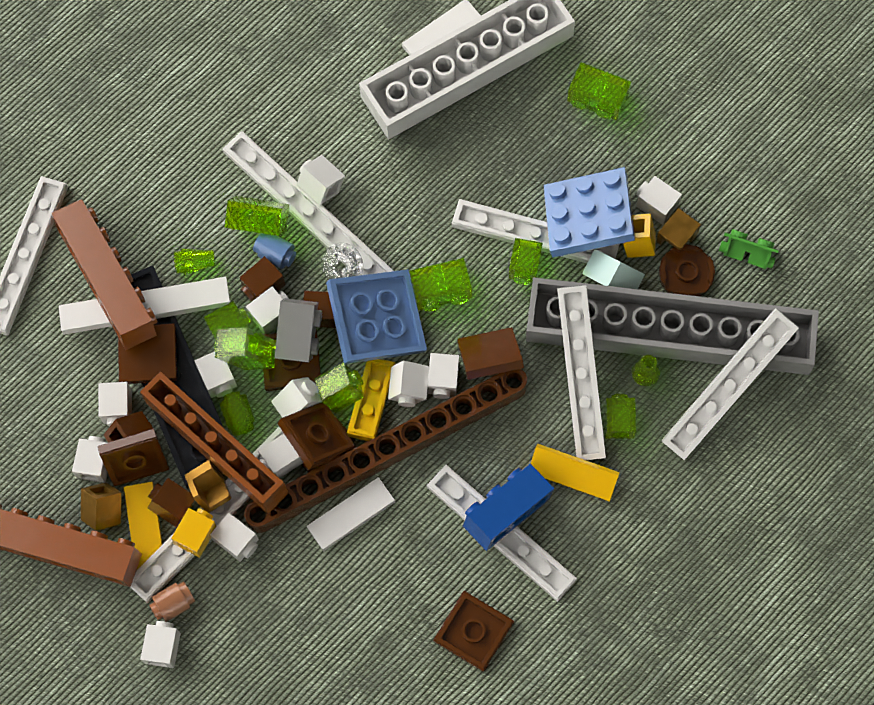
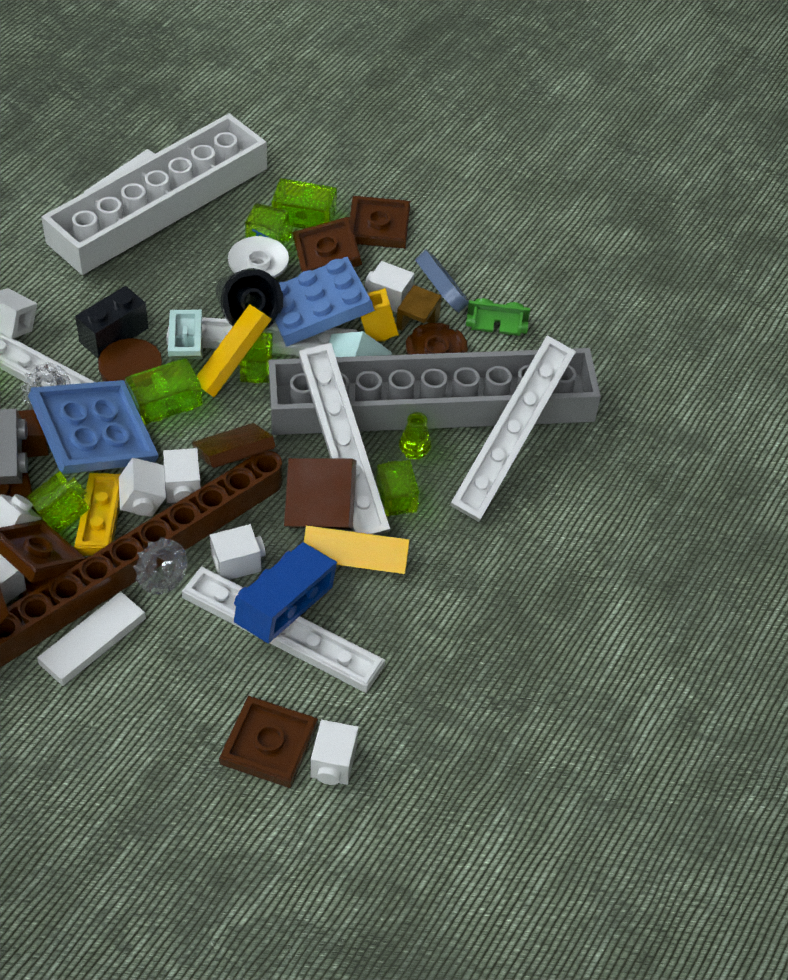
camera: 20 degrees left, 20 degrees down
(407, 202) = (112, 319): none -> black brick
(416, 245) = (127, 358): none -> reddish brown tile
(424, 462) = (173, 567): none -> clear gear
(467, 231) = (185, 334): none -> light aqua slope
(476, 458) = (237, 552): none -> white brick
(504, 257) = (232, 350): none -> yellow tile
(520, 655) = (334, 752): none -> white brick
(525, 205) = (249, 287): none -> black cone
(550, 138) = (259, 253): none -> white dish
(553, 417) = (320, 492): none -> reddish brown tile
(561, 113) = (269, 223): none -> clear neon green brick
(610, 144) = (326, 242): none -> reddish brown tile
(665, 116) = (380, 221): none -> reddish brown tile
(706, 202) = (442, 281): none -> sand blue beam

